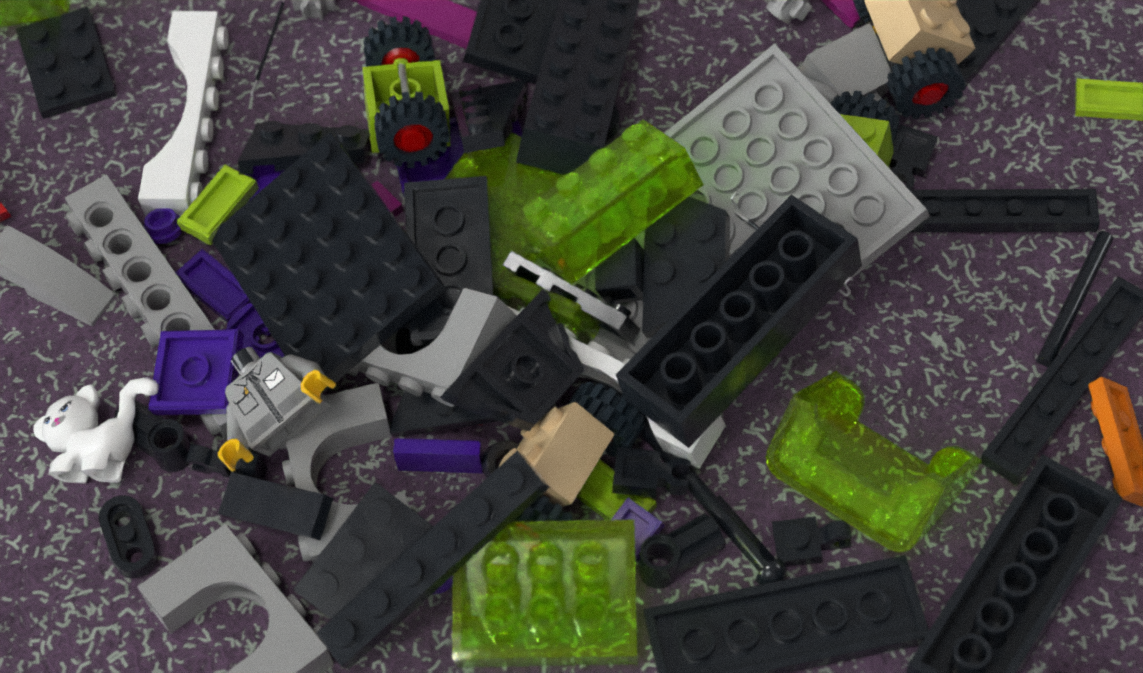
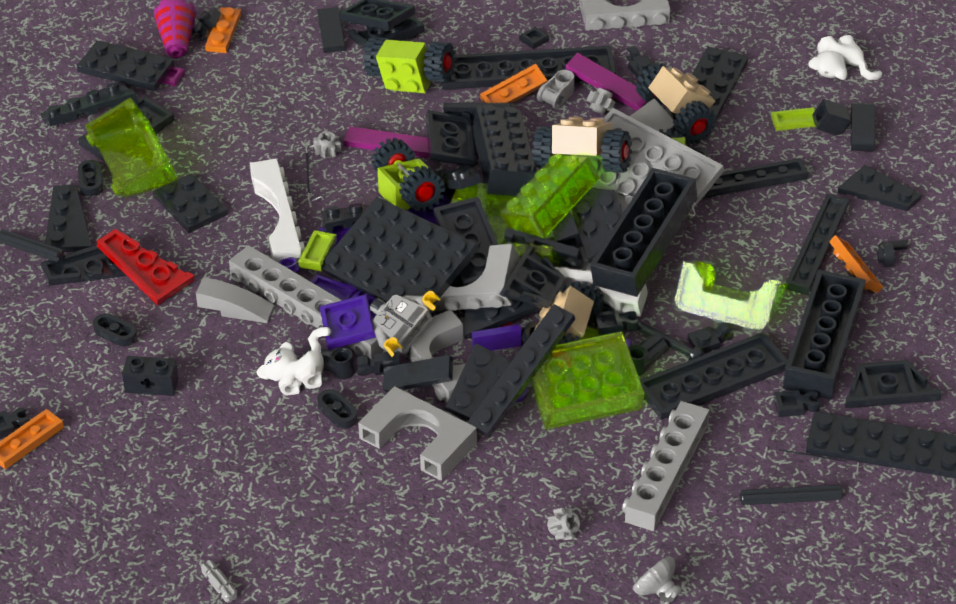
camera: 20 degrees left, 15 degrees down
(698, 106) = (584, 138): none -> brick
(1075, 298) = (807, 209): black bar -> none

